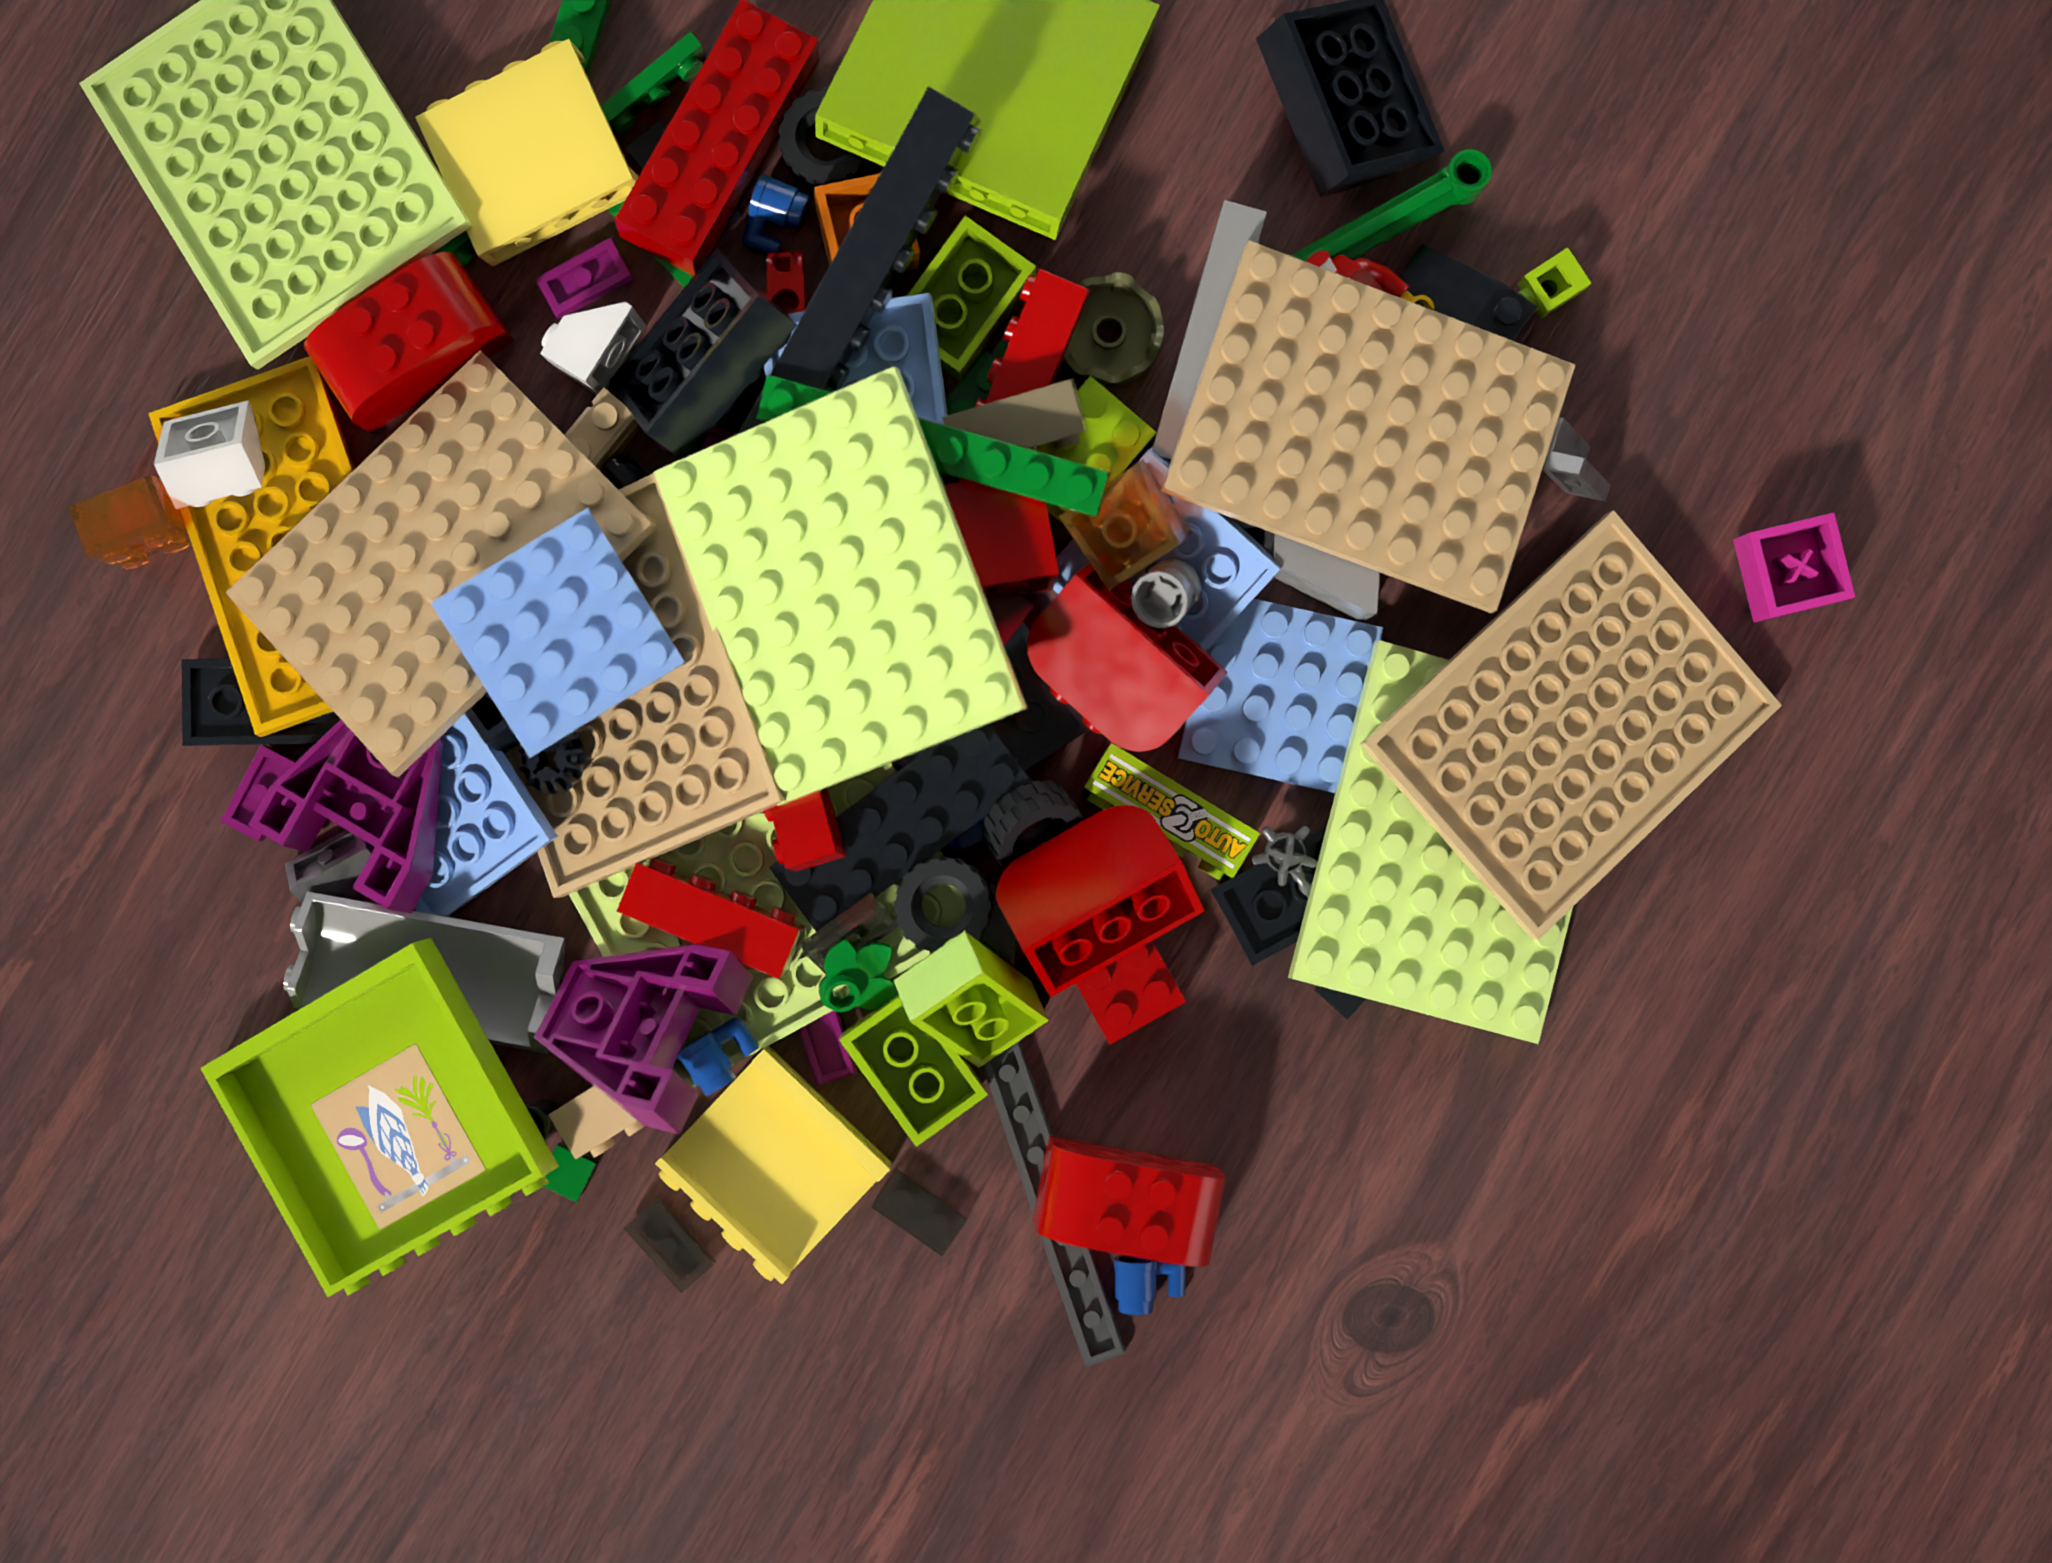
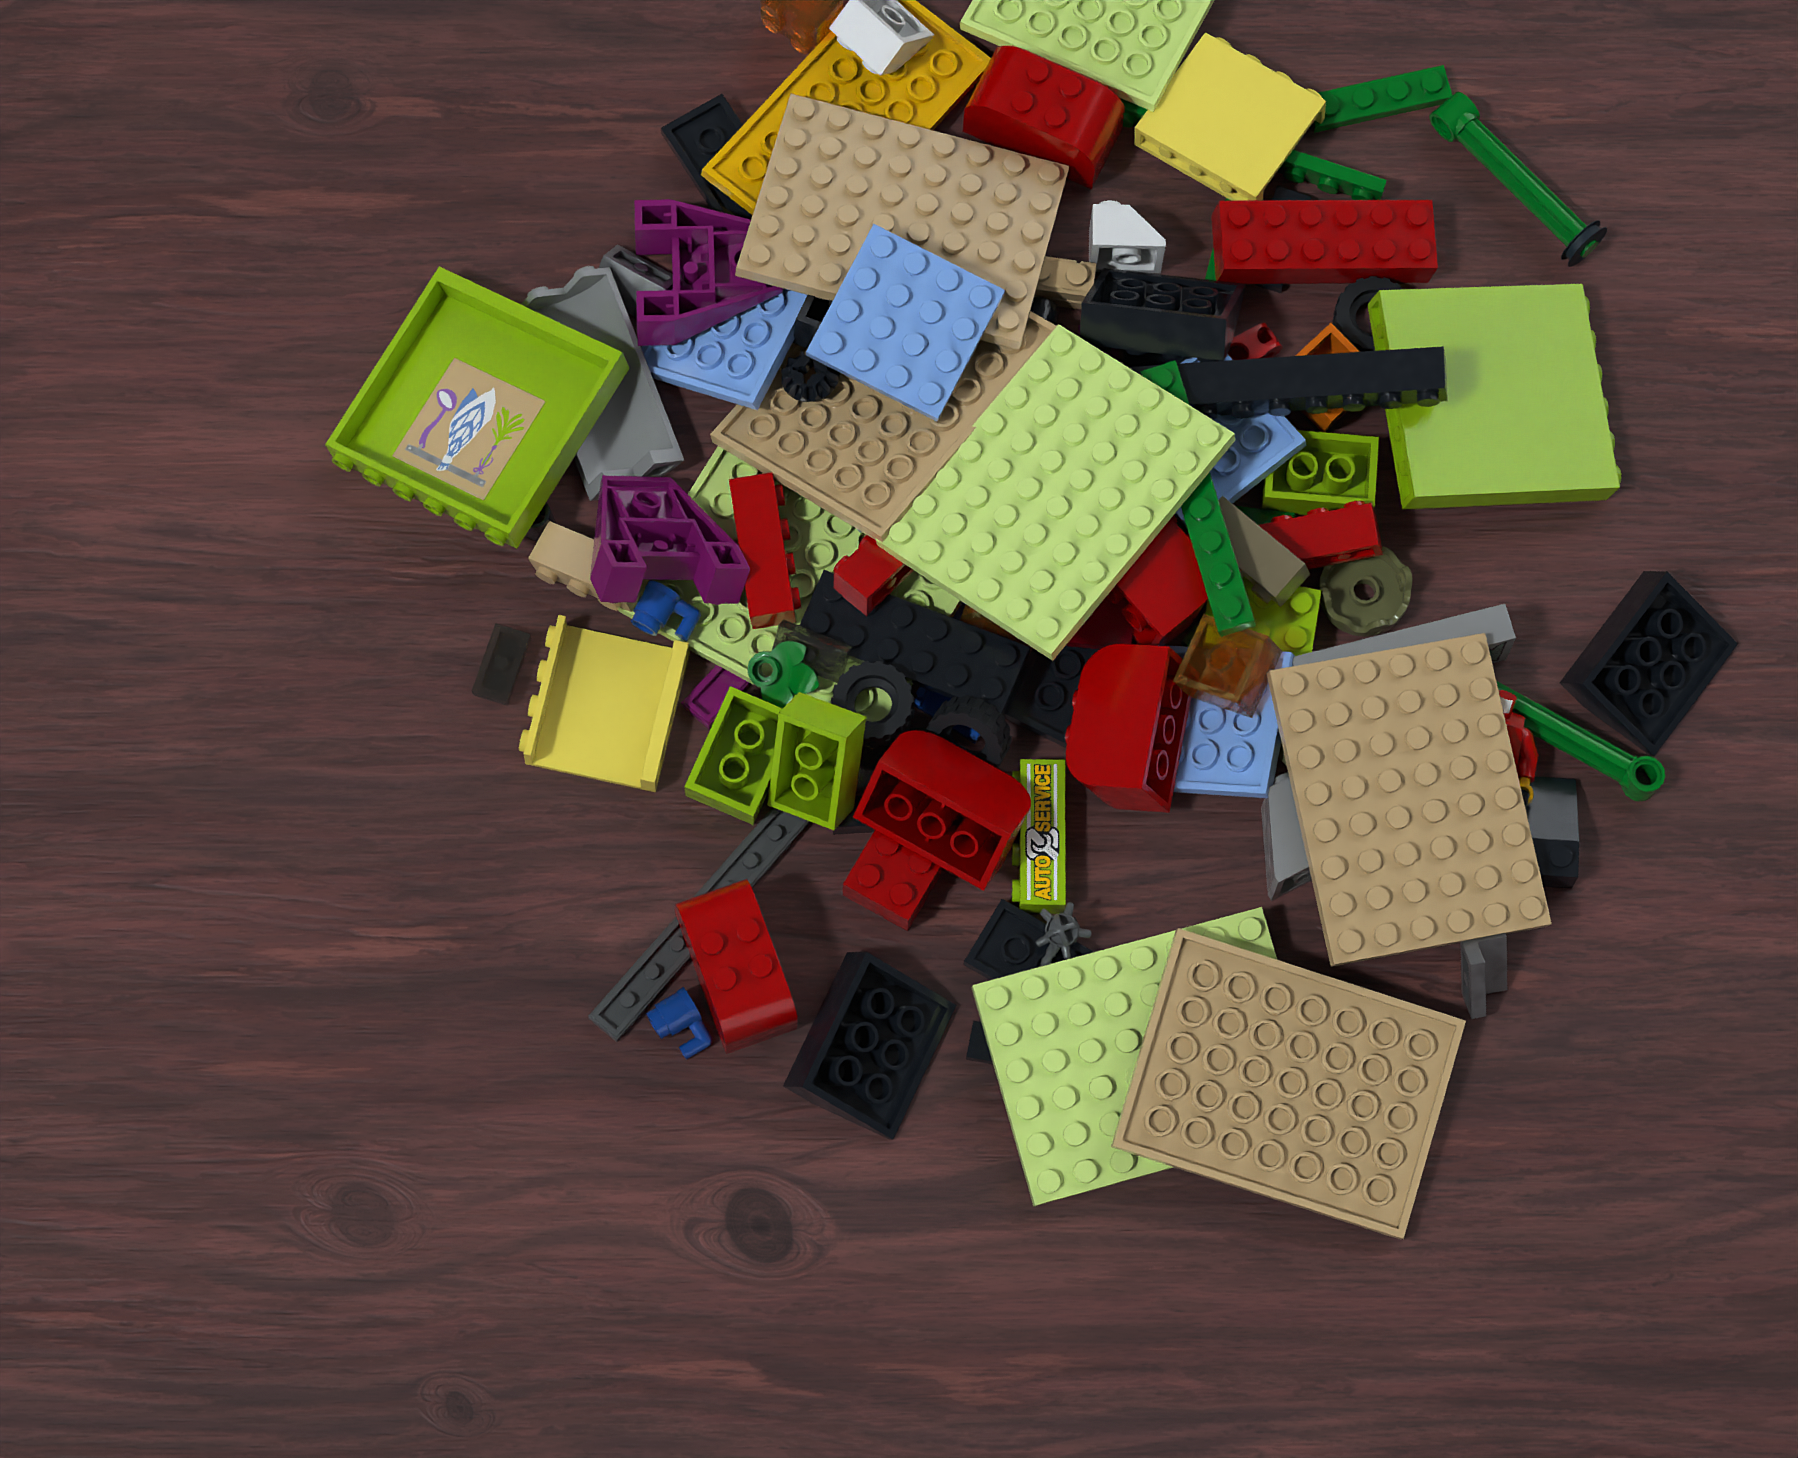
camera: 55 degrees right, 15 degrees down
(263, 771) = (656, 190): magenta plate -> none
(571, 1175) = (510, 564): green tile -> none
(584, 278) = (1167, 210): magenta plate -> none
(777, 204) = (1304, 308): blue piece -> none
(919, 1212) = (631, 830): clear smoke plate -> none
(1166, 593) = (1197, 725): light grey wheel -> none
(1280, 1109) = (870, 1044): none -> black slope
(1285, 695) = (1176, 865): light blue plate -> none
(1564, 277) = (1614, 878): lime brick -> none
(1794, 567) = (1510, 1183): dark pink brick -> none

